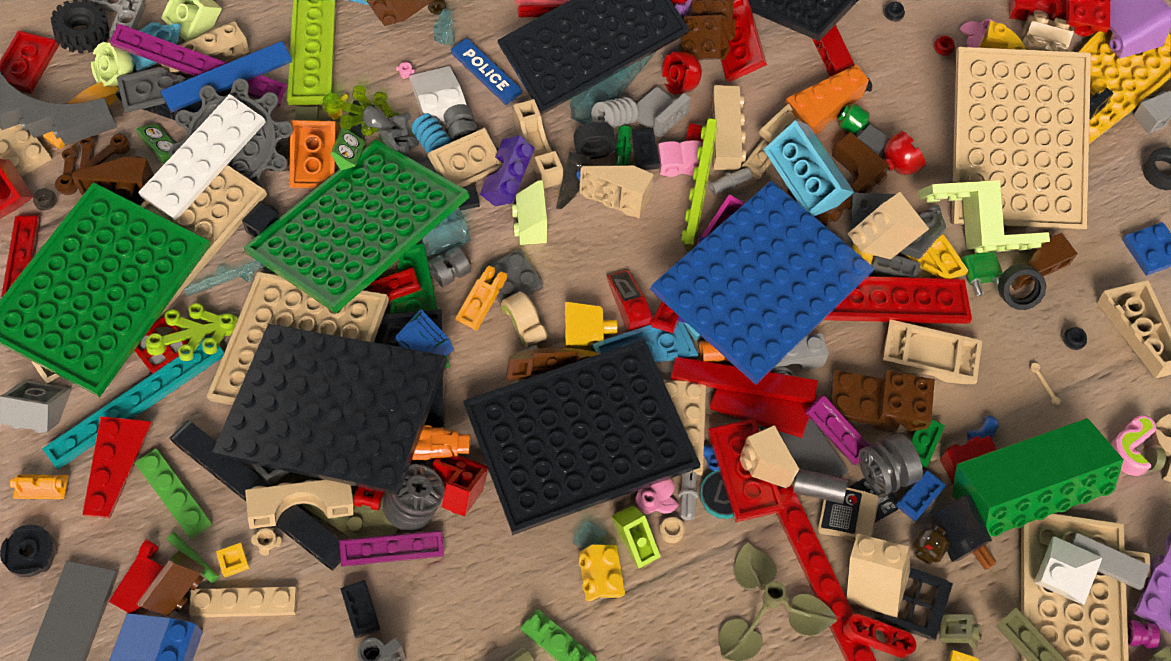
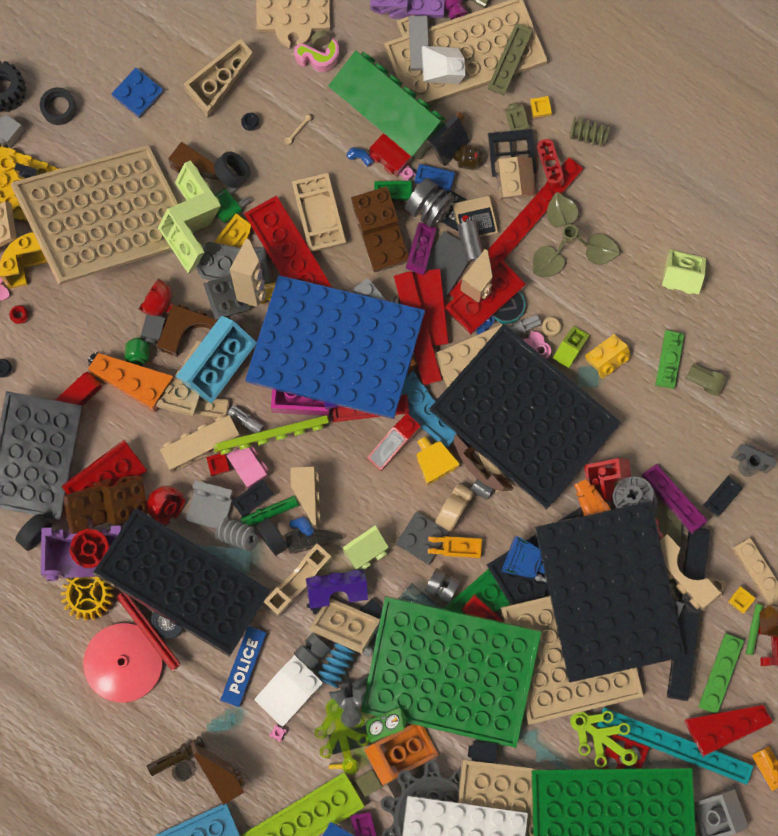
camera: 115 degrees left, 15 degrees up
(939, 469) = (407, 173): none -> bright pink piece

